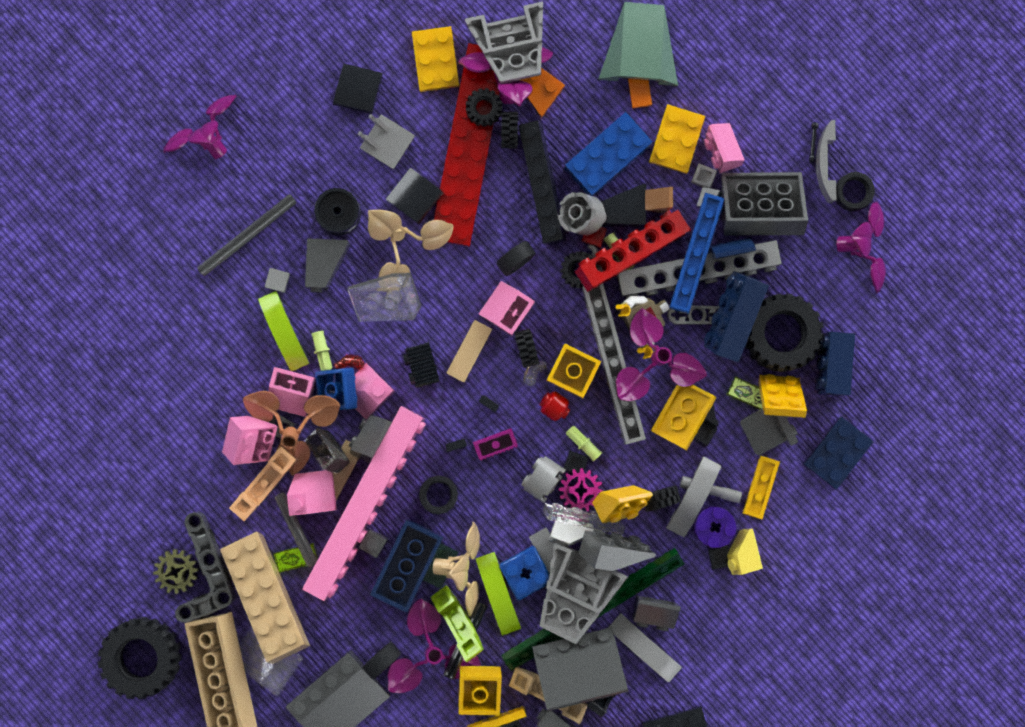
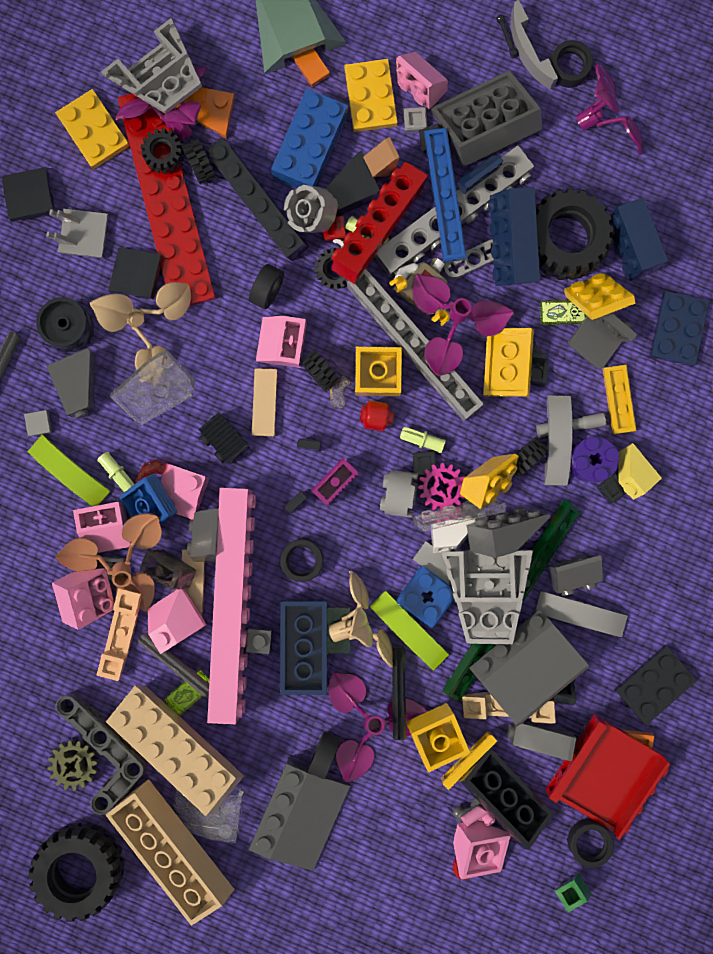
camera: 25 degrees left, 0 degrees up
(458, 622) = (384, 679): lime slope -> none

